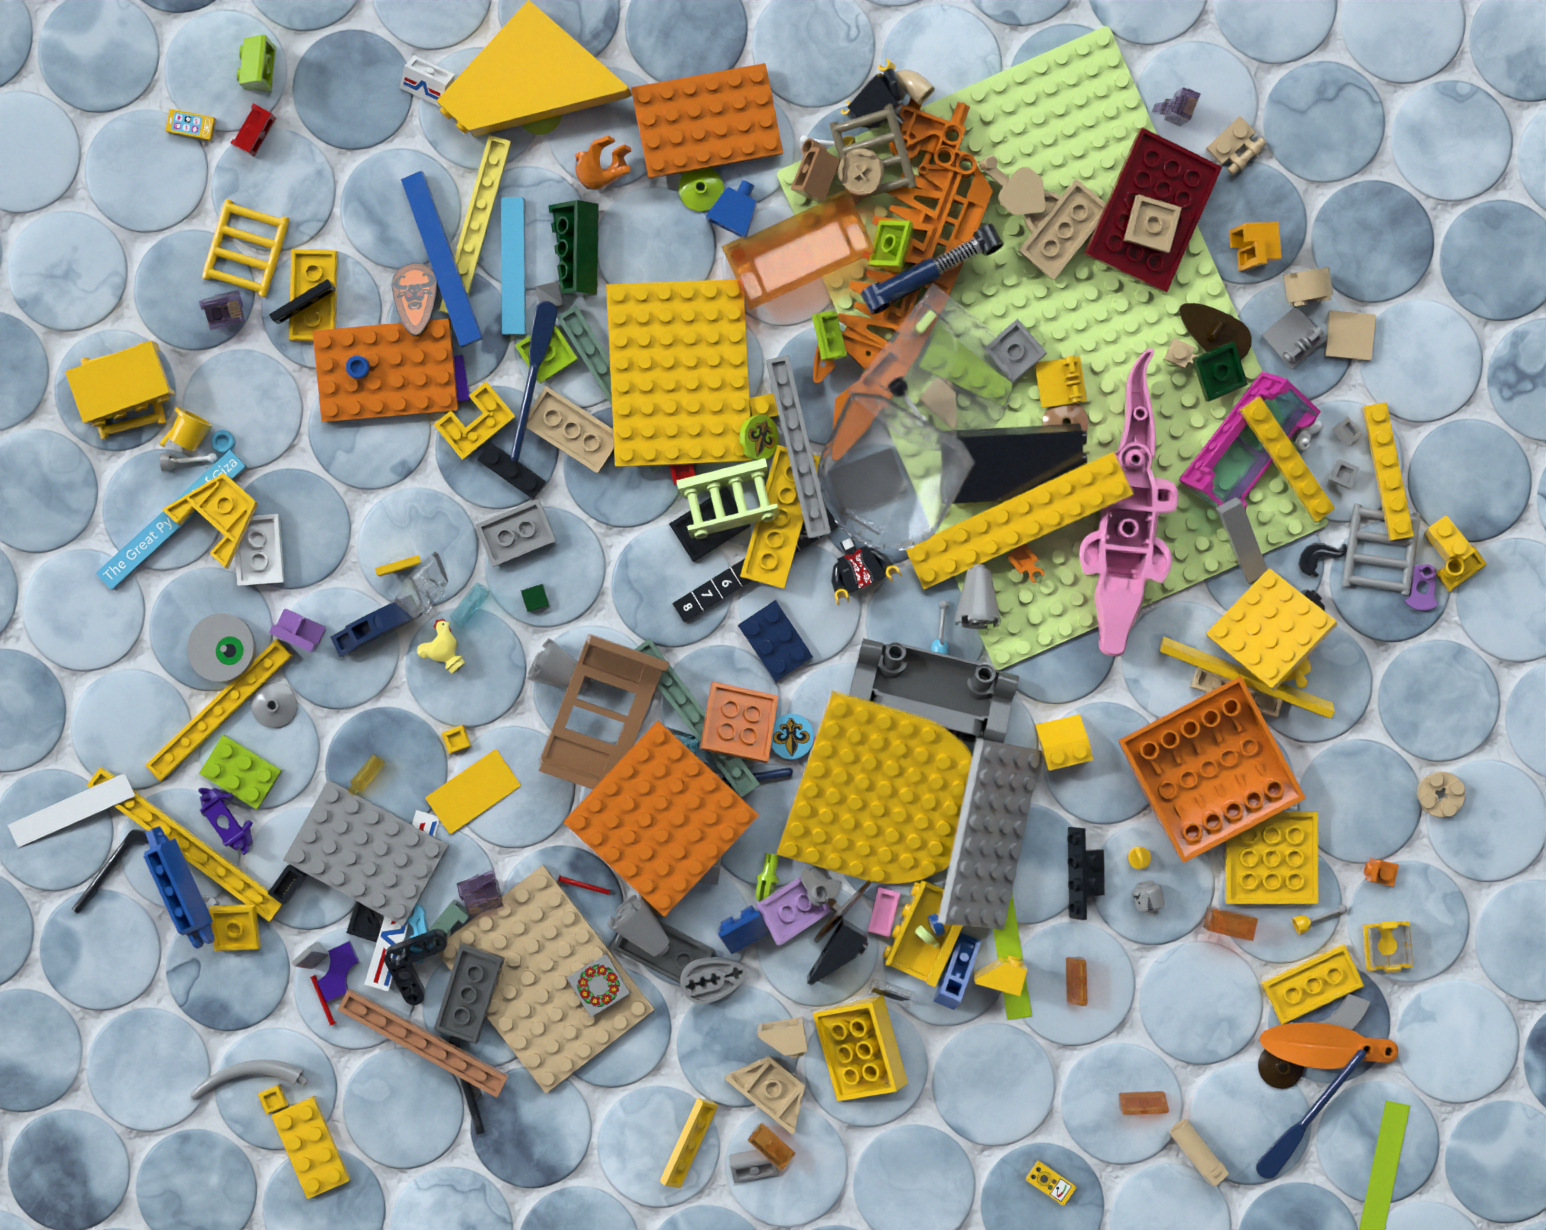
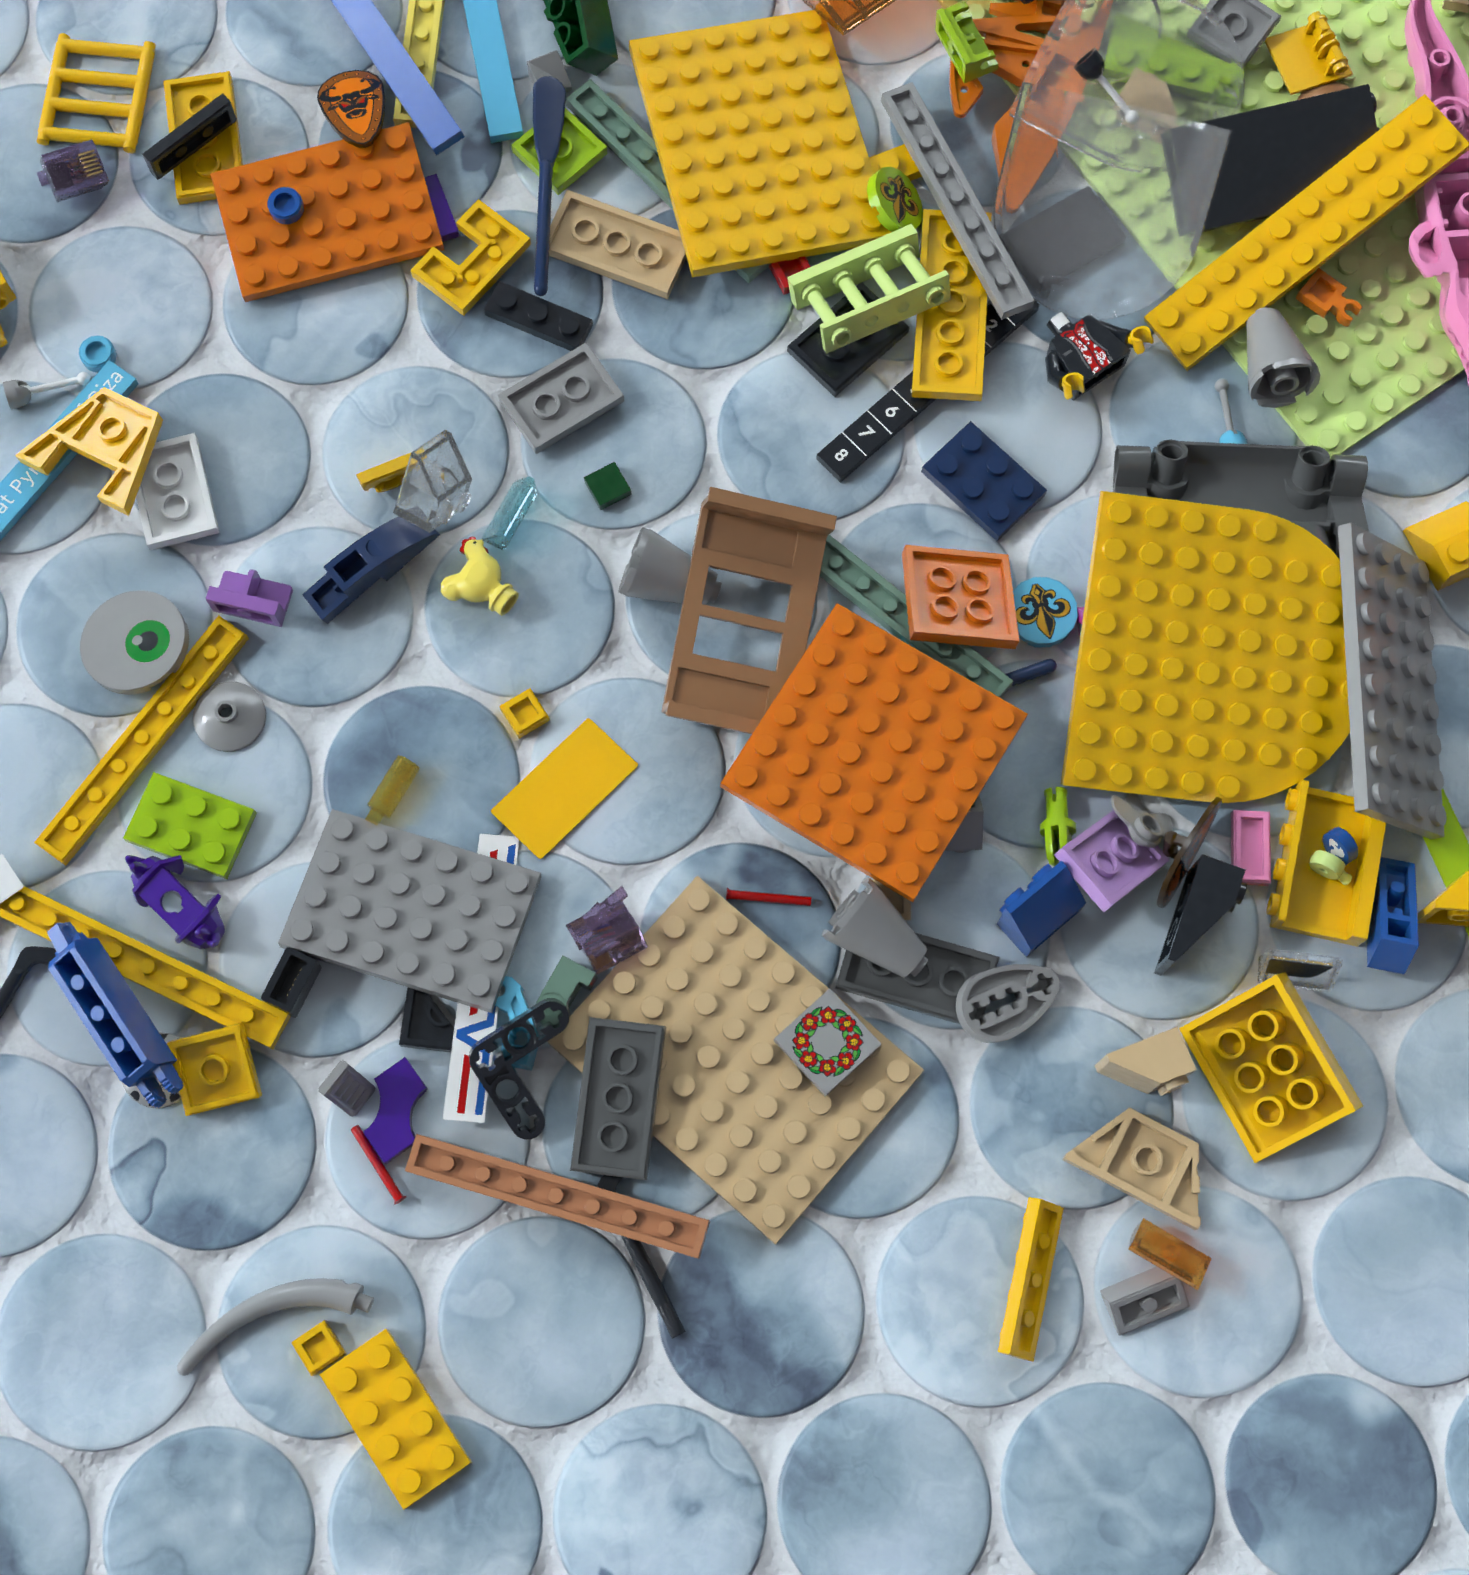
camera: 10 degrees left, 15 degrees down
(187, 430) = (41, 339): yellow hat -> none

